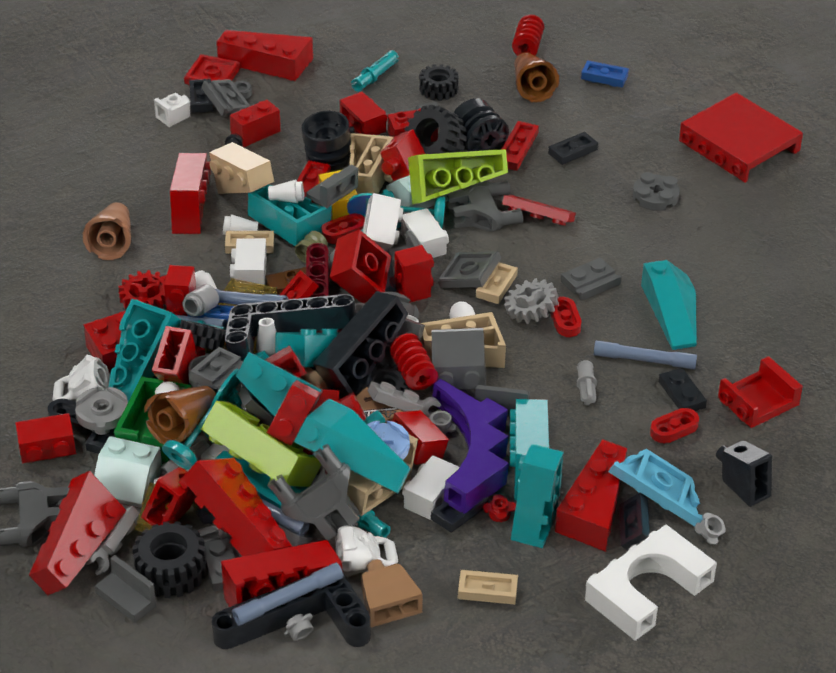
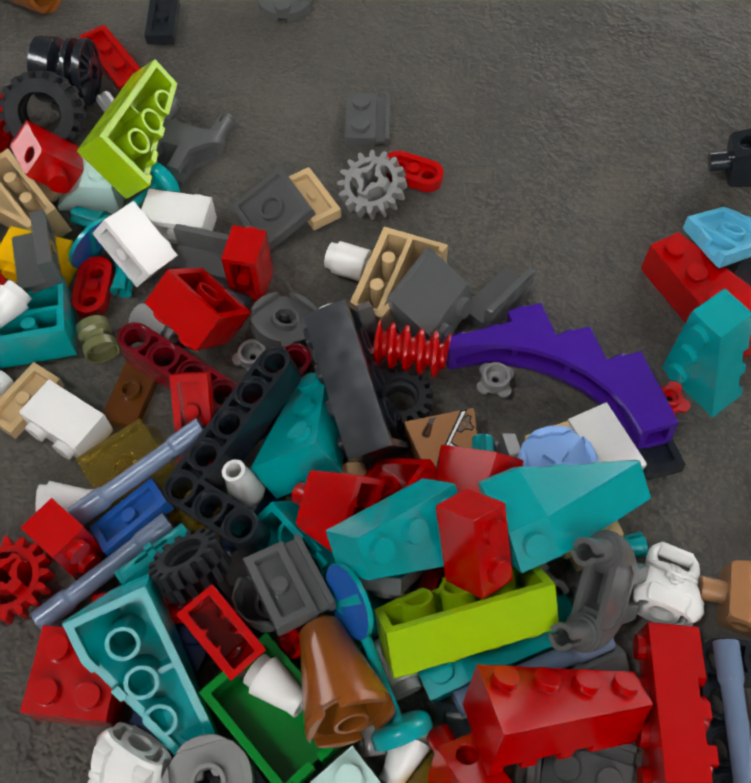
camera: 55 degrees left, 20 degrees up
(200, 300) = (109, 525): light grey brick -> none
(406, 401) = (450, 398): light grey plate -> none
(430, 438) = (517, 411): red brick -> none
(527, 427) = (617, 314): wedge -> none
(539, 210) = (230, 98): plate -> none
(586, 382) = (525, 211): light grey axle -> none
(672, 302) = (452, 78): teal wedge -> none
(674, 425) = (640, 177): red plate -> none
(675, 359) = (494, 160): sand blue piece -> none
(682, 390) = (588, 143): black plate -> none
(761, 394) = (638, 87): red panel -> none

